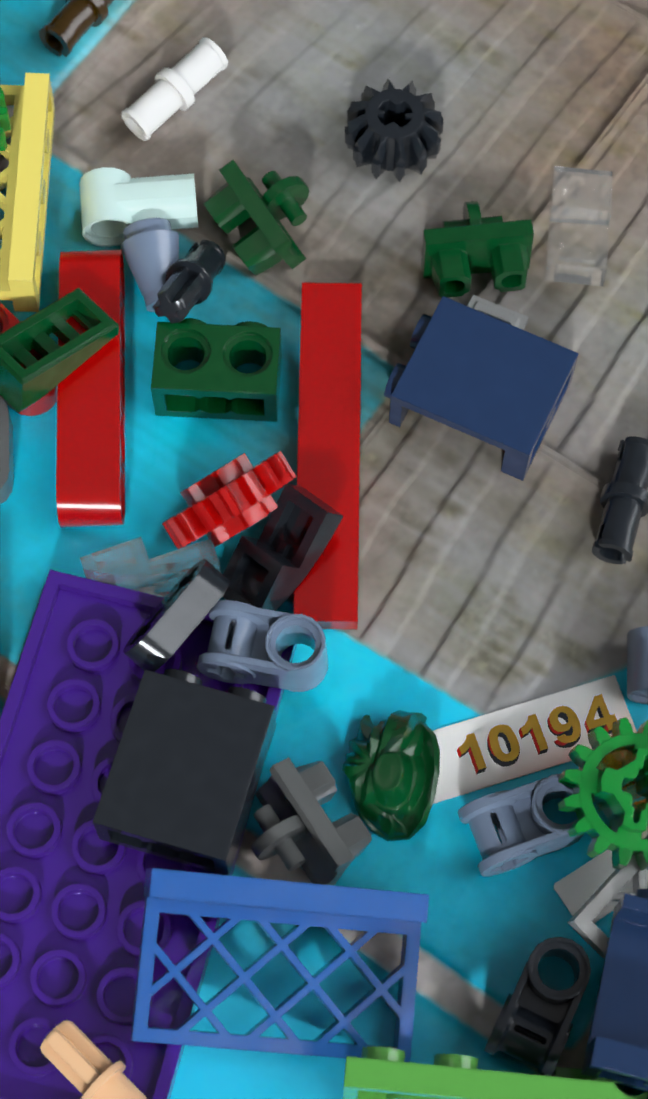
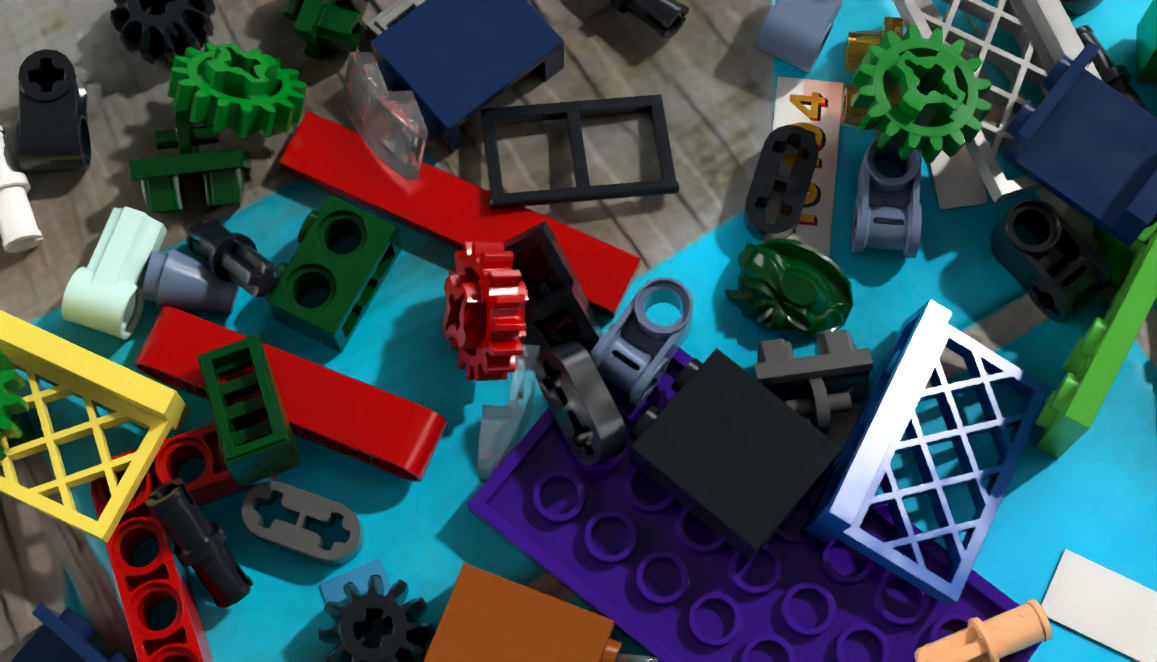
camera: 65 degrees left, 5 degrees up
(250, 96) = (52, 115): none -> black piece
(343, 214) = (236, 90): none -> green gear
(381, 341) = (384, 118): none -> clear slope
(475, 503) = (572, 113): none -> black window
(497, 703) = (767, 179): none -> black beam

